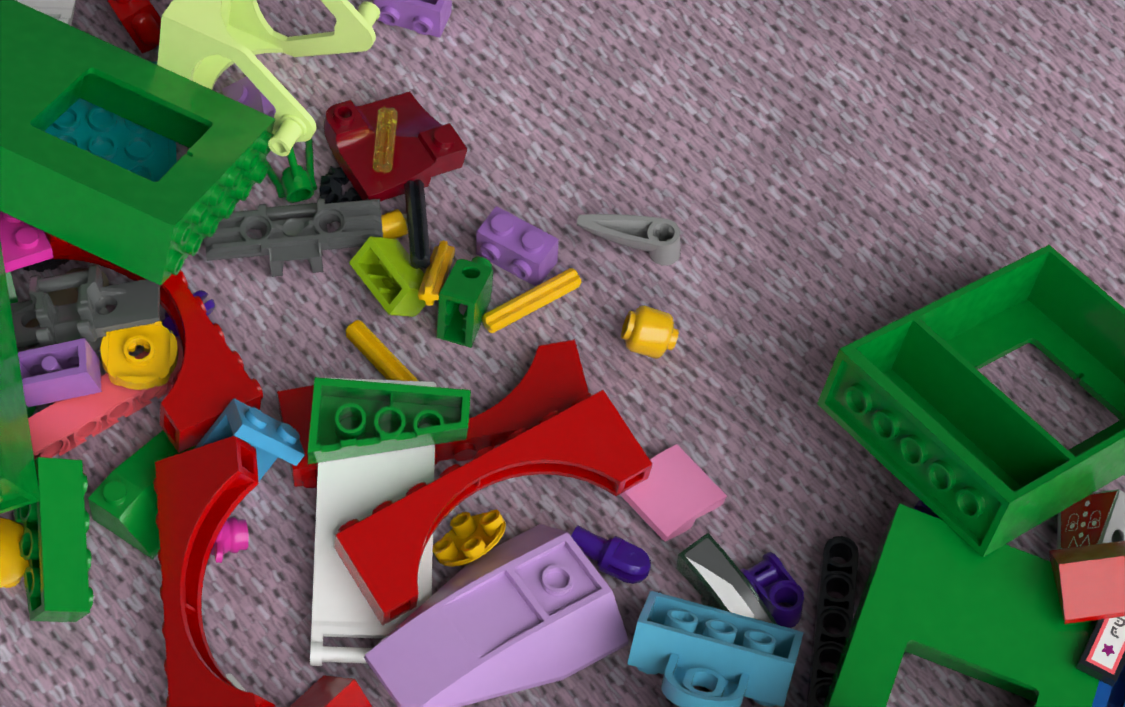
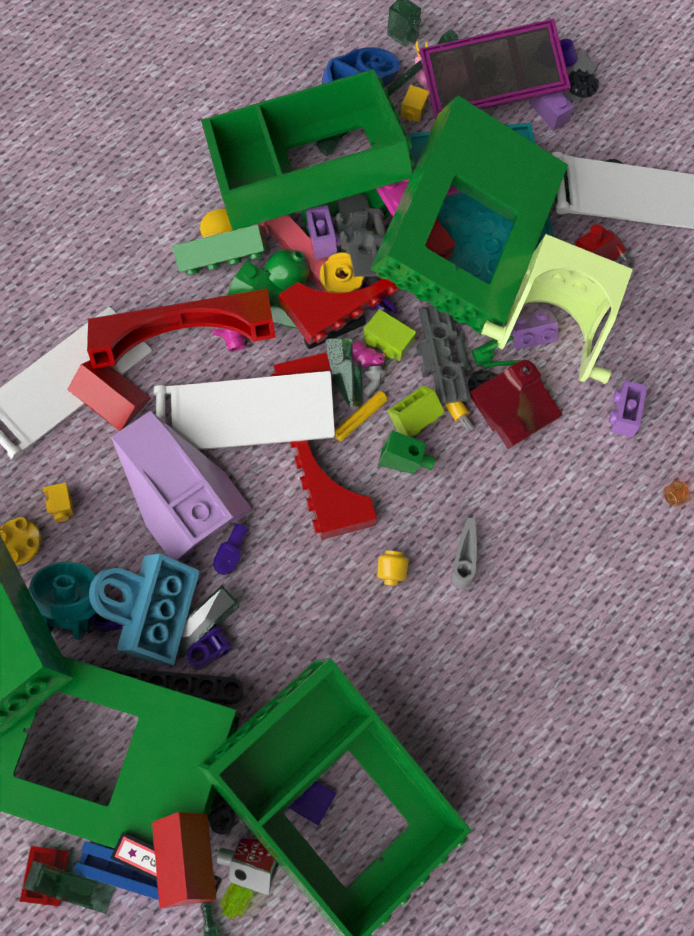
camera: 85 degrees right, 10 degrees up
(109, 436) = (287, 268): none -> green cylinder
(251, 304) = (389, 335): none -> lime brick
(259, 430) = (284, 337): dark azure bracket -> none
(282, 348) = (367, 356): none -> dark pink animal
(308, 364) = (345, 370): none -> clear green slope
(318, 331) = (375, 374): none -> light grey plate
(379, 417) = (298, 401): green wedge -> none
(385, 139) = (511, 395): clear yellow axle -> none
(417, 224) = (454, 421): black axle -> none
(436, 272) = (420, 434): yellow axle -> none
(469, 538) = (236, 467): yellow dish -> none
(517, 246) = (448, 482): medium lavender brick -> none
(531, 300) = (413, 497): yellow axle -> none
(578, 443) = (295, 523): red arch -> none
(674, 494) = (277, 585): bright pink slope -> none

